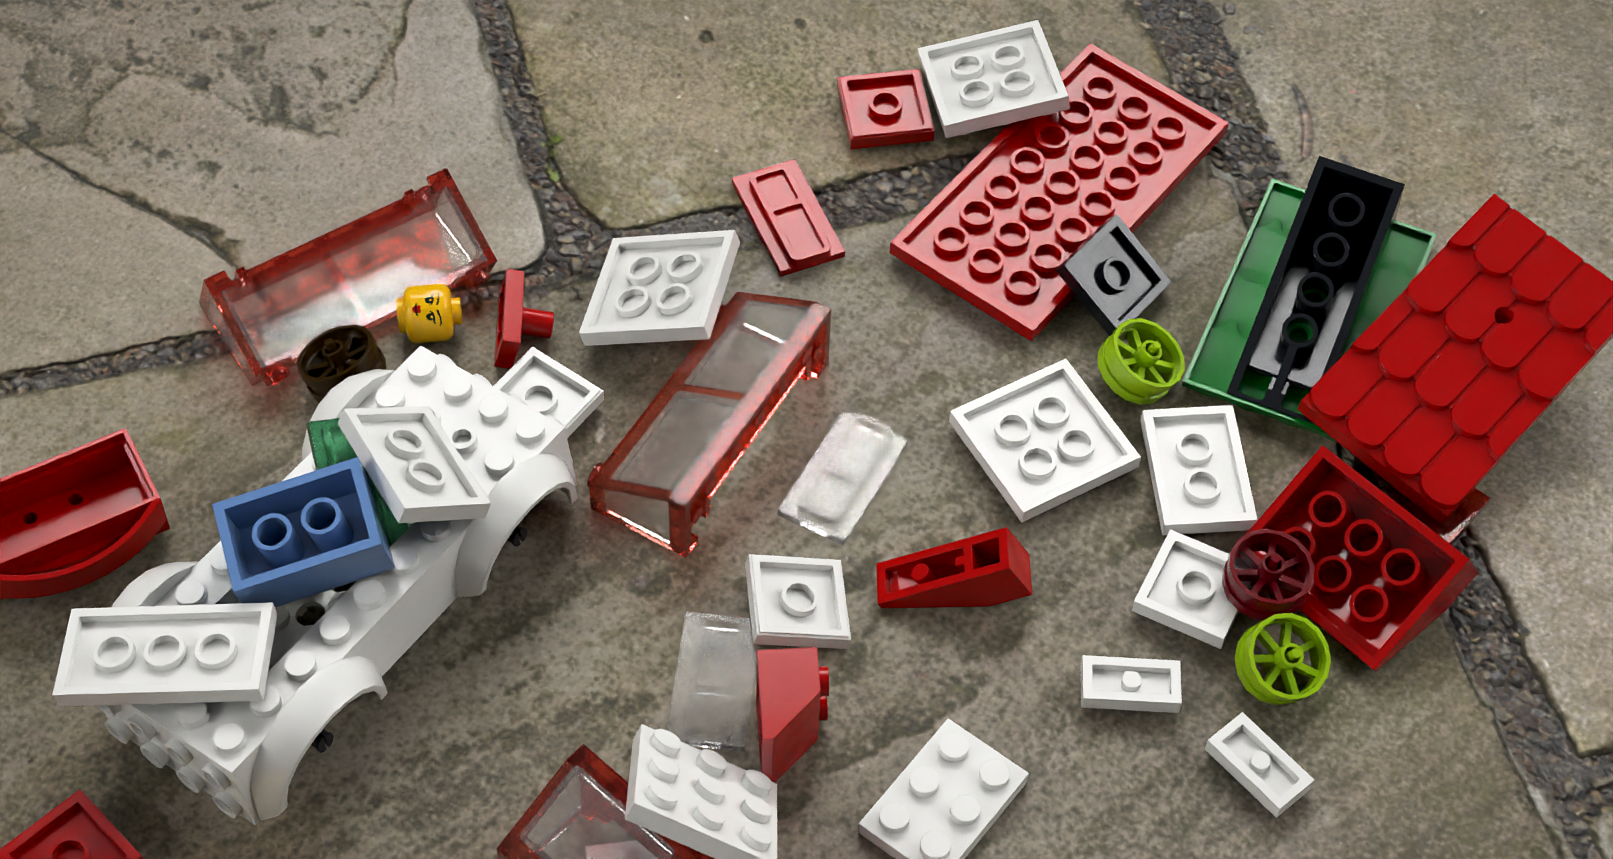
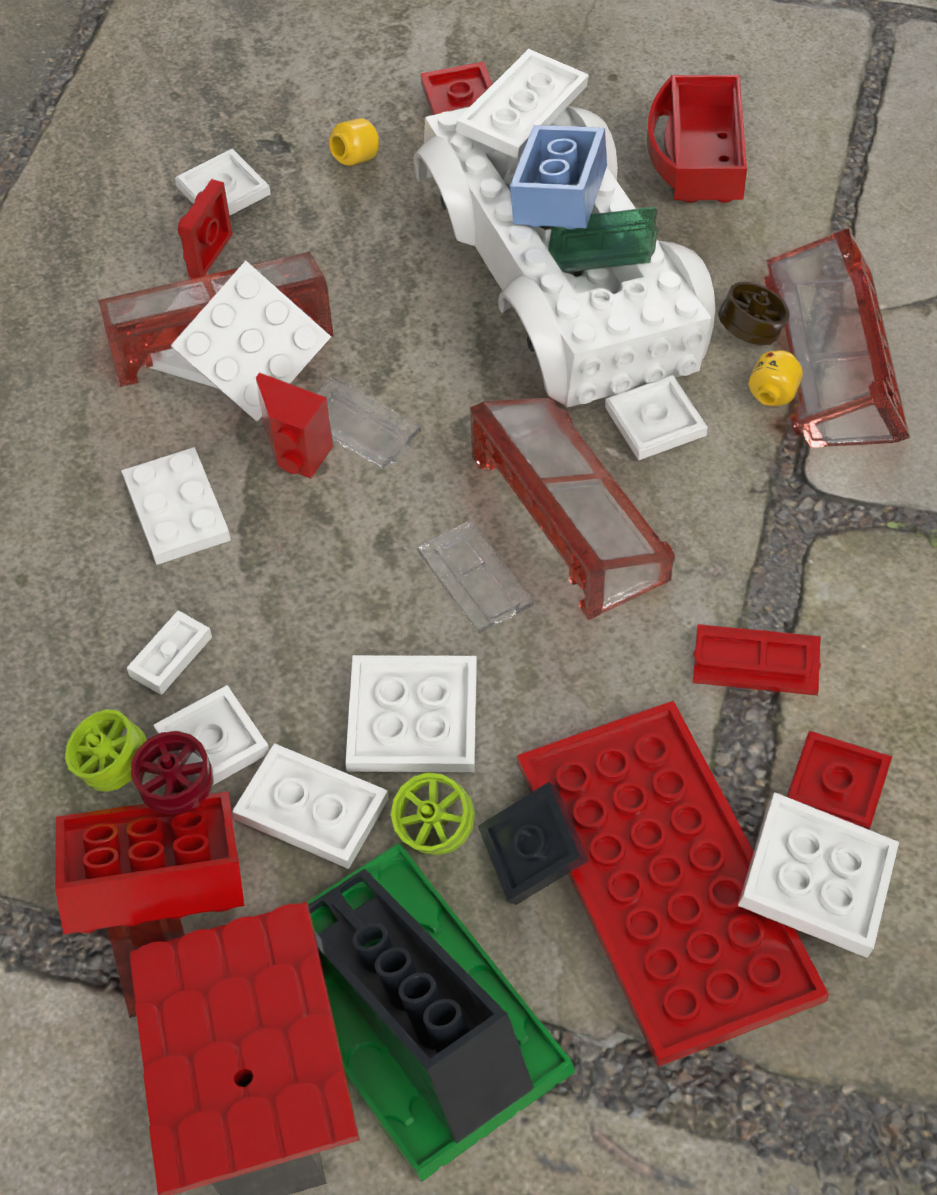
camera: 125 degrees right, 0 degrees up
(413, 464) = (578, 240): white plate -> none
(516, 320) = (741, 427): red tile -> none
(660, 288) = (709, 515): white plate -> none
(797, 602) = (381, 489): white plate -> none
(957, 574) = (328, 591): red slope -> none
(1259, 764) = (48, 695): white plate -> none

